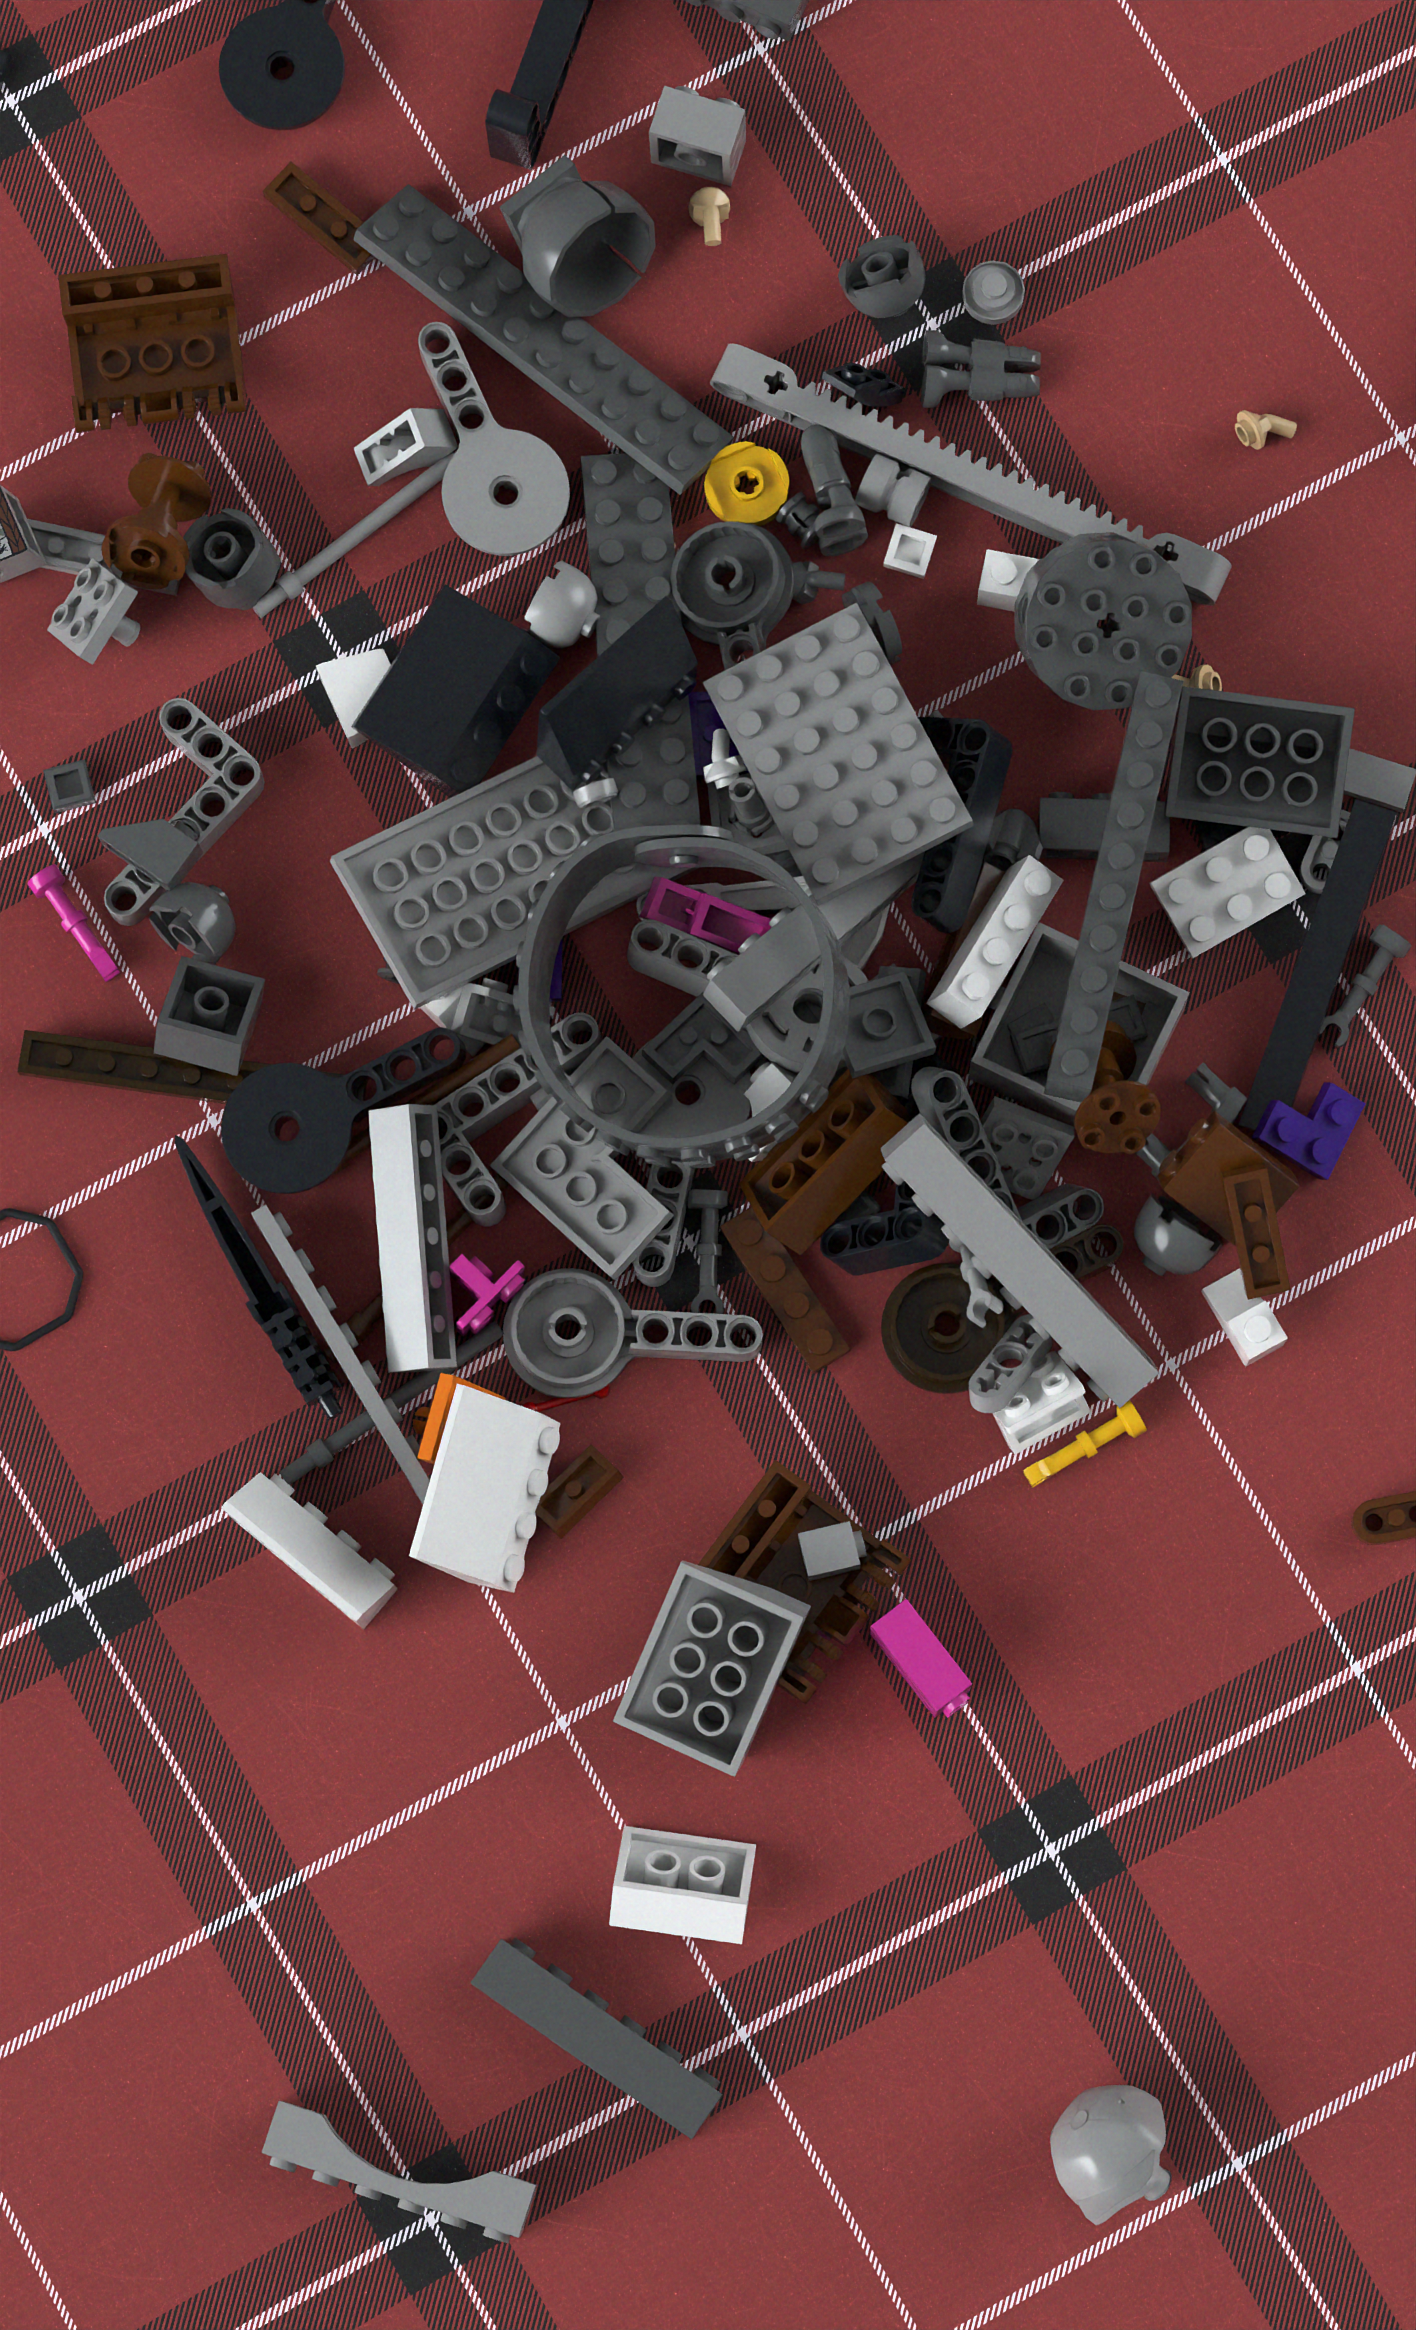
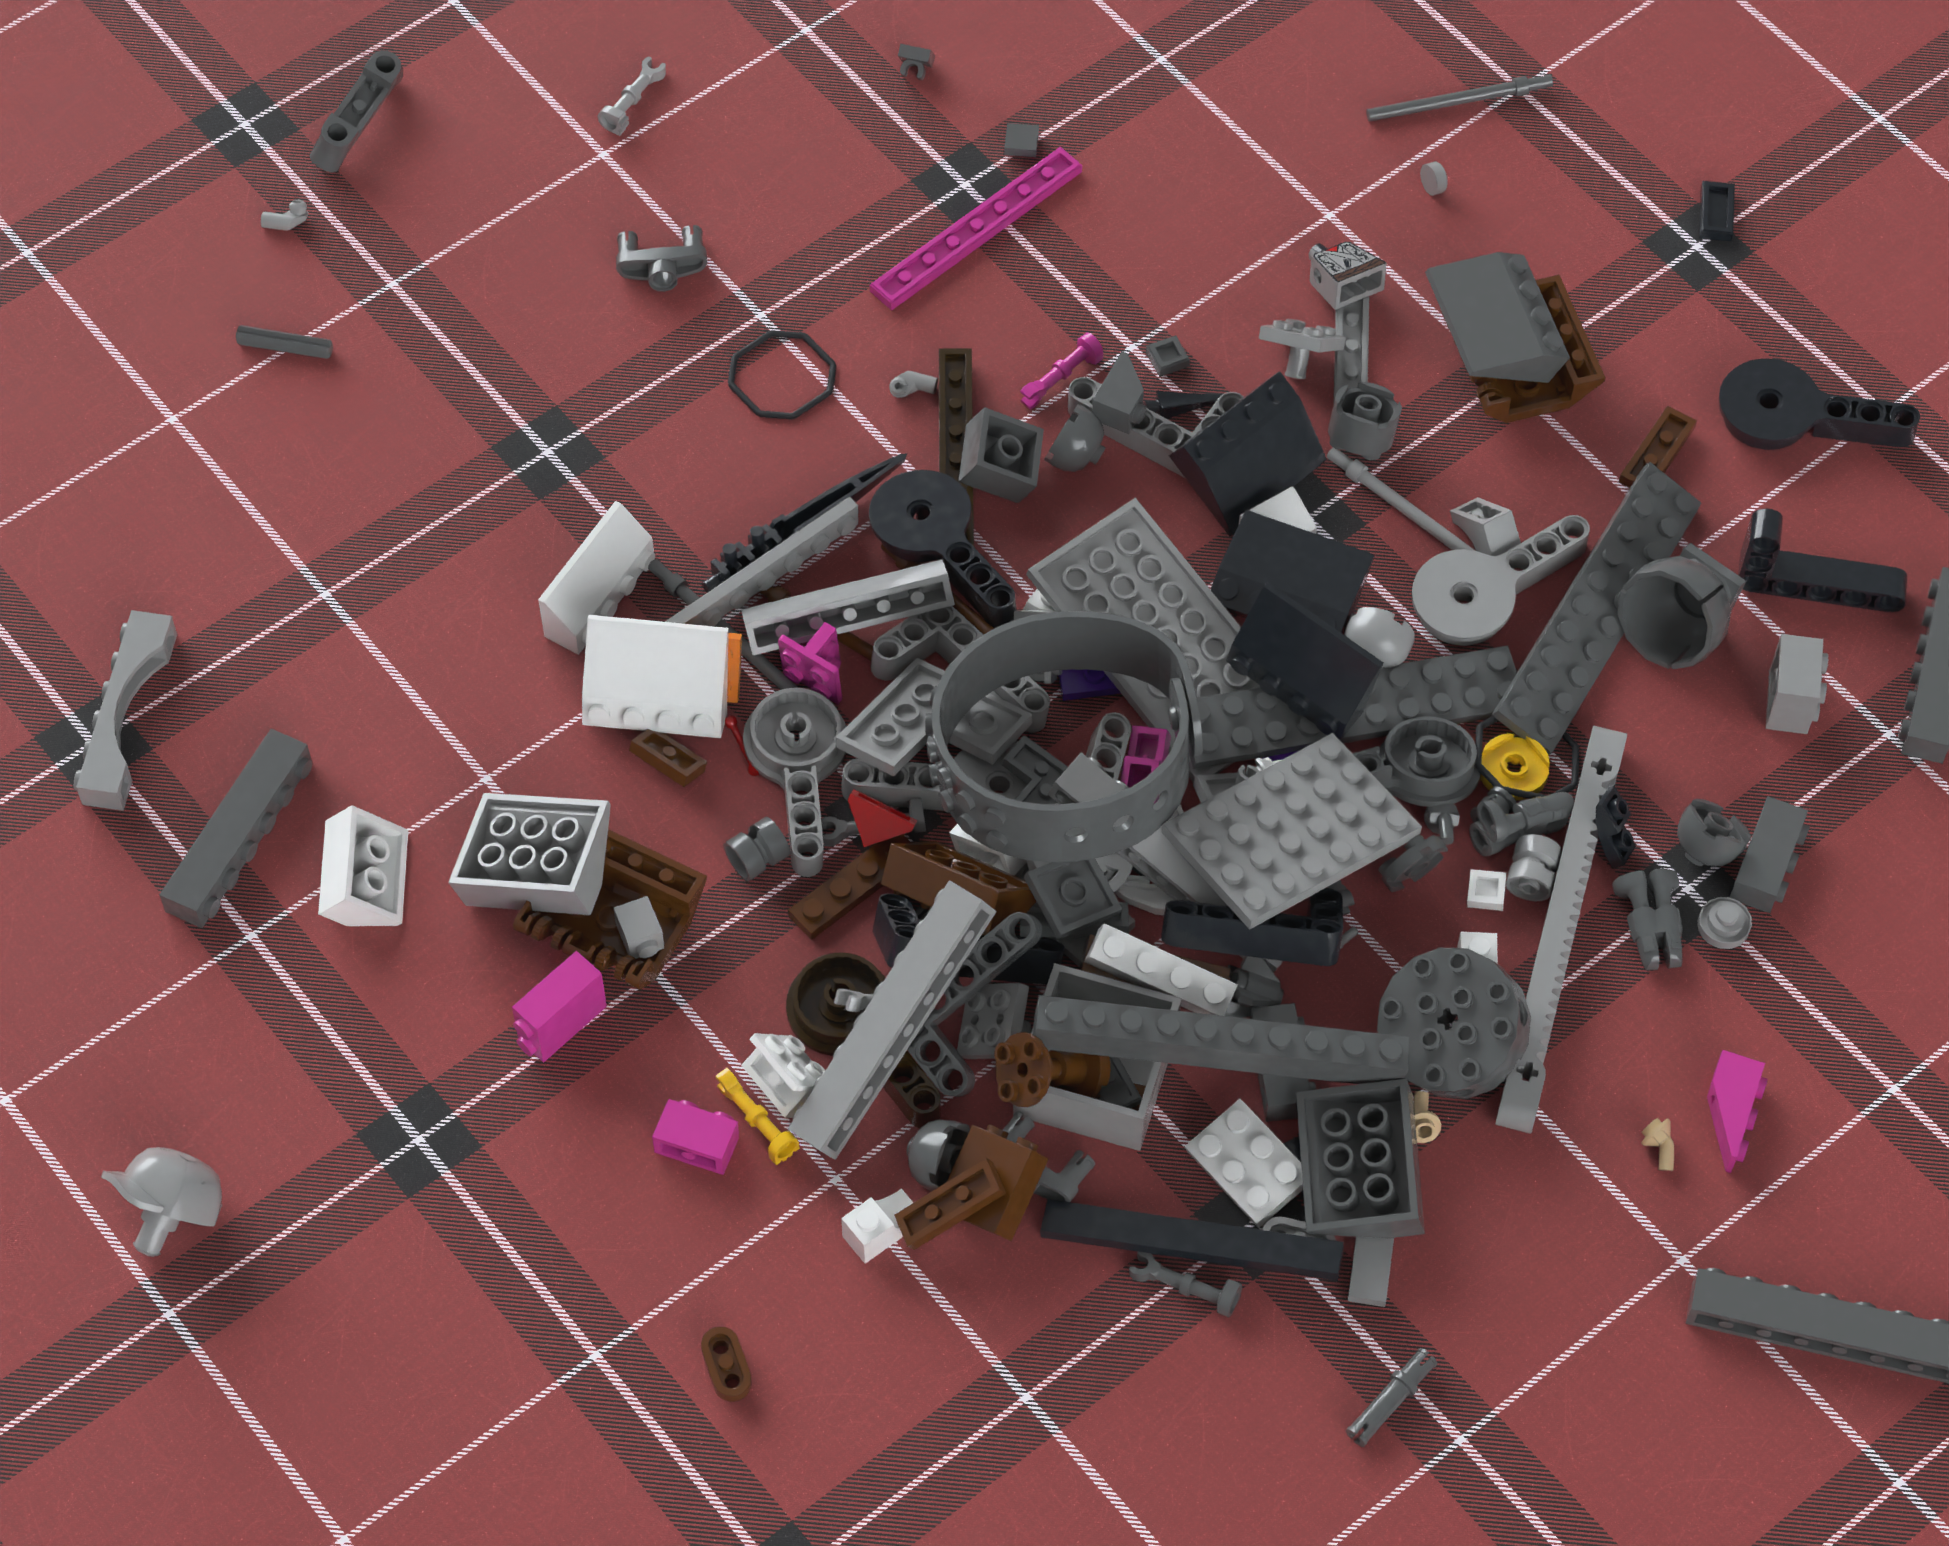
camera: 75 degrees right, 20 degrees down
(56, 1116) = (911, 382): none -> light grey arm
(118, 363) = (1499, 317): none -> dark grey slope
(148, 543) = (1361, 355): reddish brown piece -> none
(148, 794) = (1173, 403): none -> black piece
(254, 708) = (1251, 452): none -> black slope
(596, 793) = (1228, 679): light grey tile -> none
(708, 209) = (1739, 709): tan plate -> none
(723, 1240) = (877, 820): none -> red slope
(729, 1398) = (754, 850): none -> dark grey wheel
(790, 480) = (1516, 792): none -> black piece
(891, 206) = (1770, 855): none -> dark grey brick
(1008, 1380) = (798, 1021): light grey beam -> none
(1103, 1518) = (696, 1136): none -> dark pink brick
(1224, 337) = (1731, 1099): none -> dark pink slope
(1313, 1140) = (1041, 1257): dark purple plate -> none

